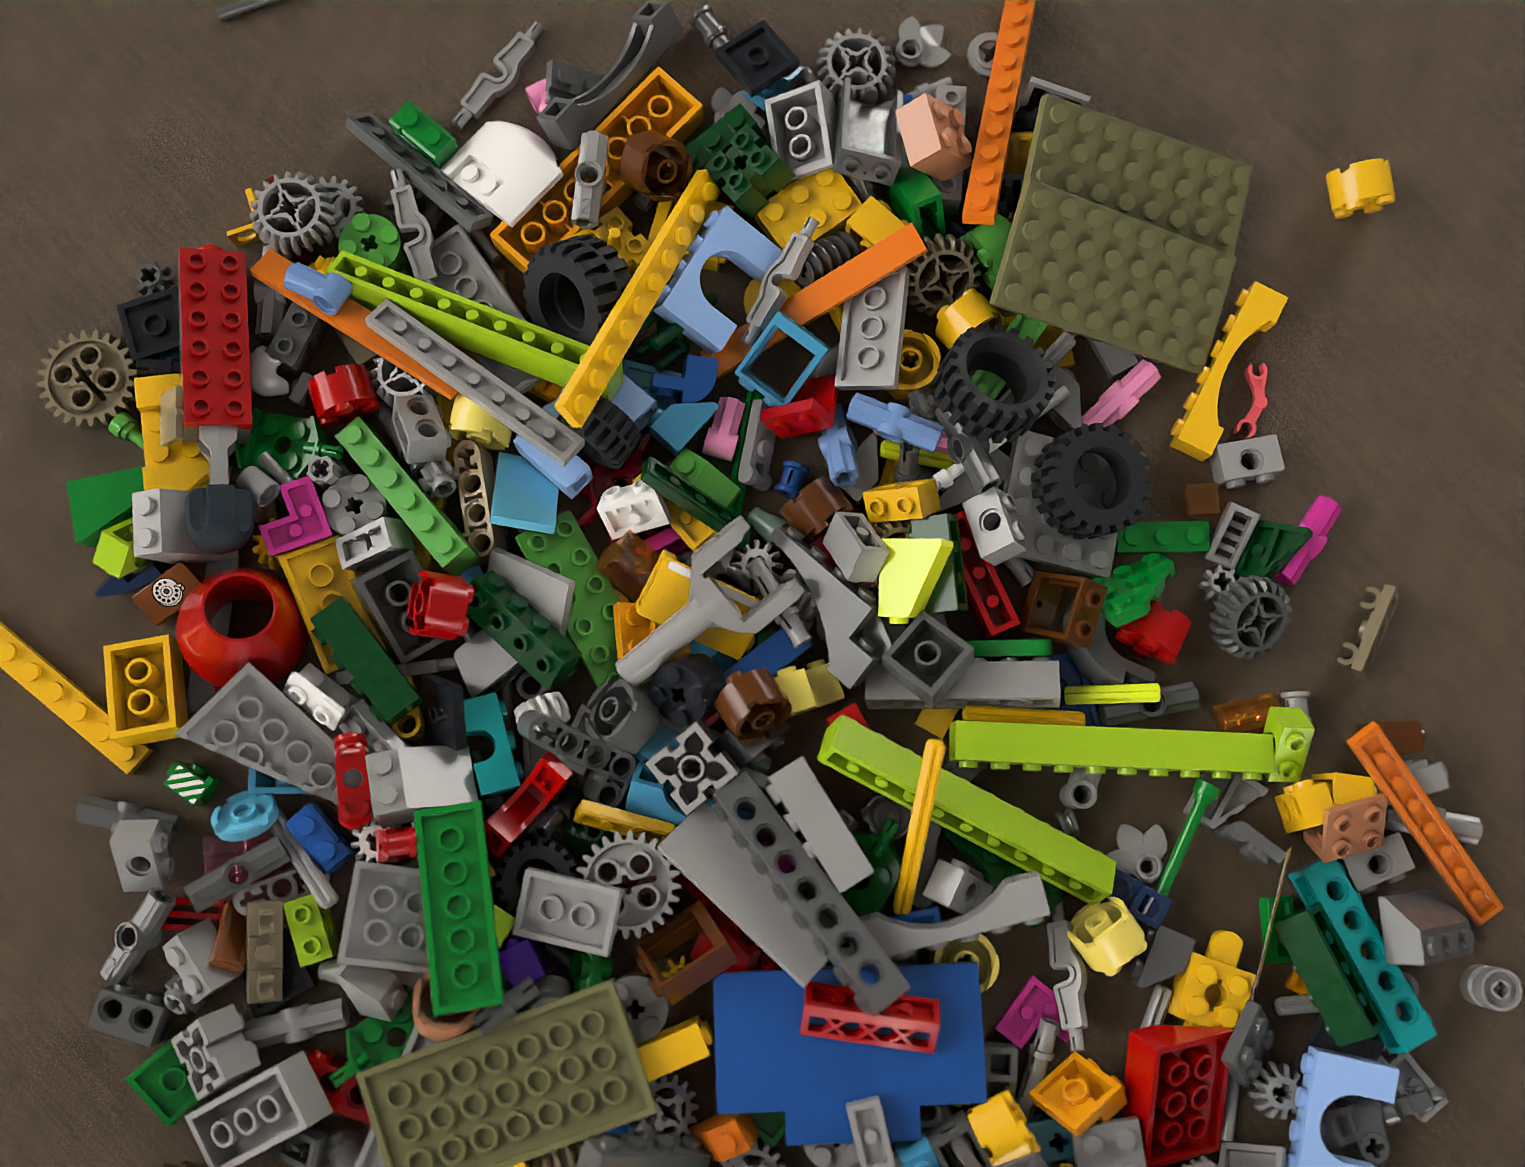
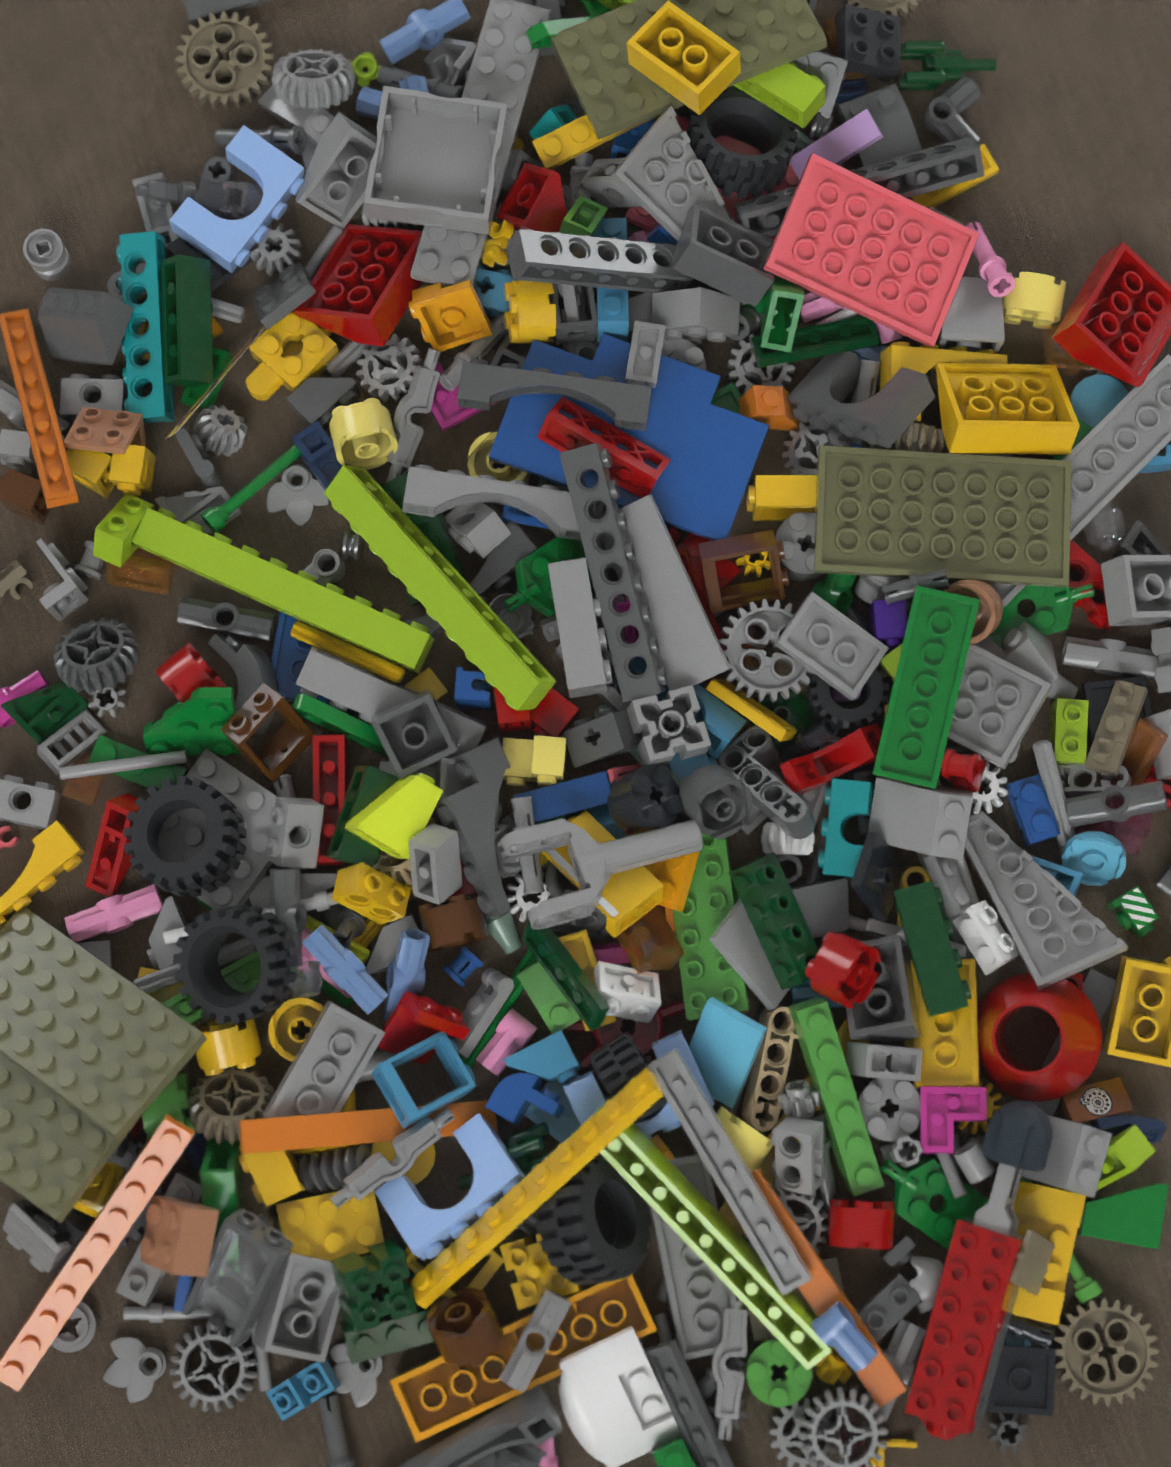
camera: 150 degrees left, 0 degrees up
(354, 802) = (988, 827): red piece -> none
(752, 704) = (592, 757): reddish brown brick -> none
(757, 58) = (311, 1412): black plate -> none
(807, 739) = (553, 715): none -> red slope
(897, 726) = (470, 693): none -> blue hinge
(918, 826) = (490, 587): yellow axle -> none
(1014, 1031) = (488, 384): none -> dark grey arch
(1112, 694) = (257, 638): neon yellow axle -> none
(1115, 999) = (387, 380): none -> light grey gear
(1147, 432) = (109, 857): none -> red slope
(1176, 530) = (123, 765): none -> light grey bar
(1242, 881) = (220, 430): none -> light grey gear
(1303, 671) = (69, 595): none -> light grey bracket

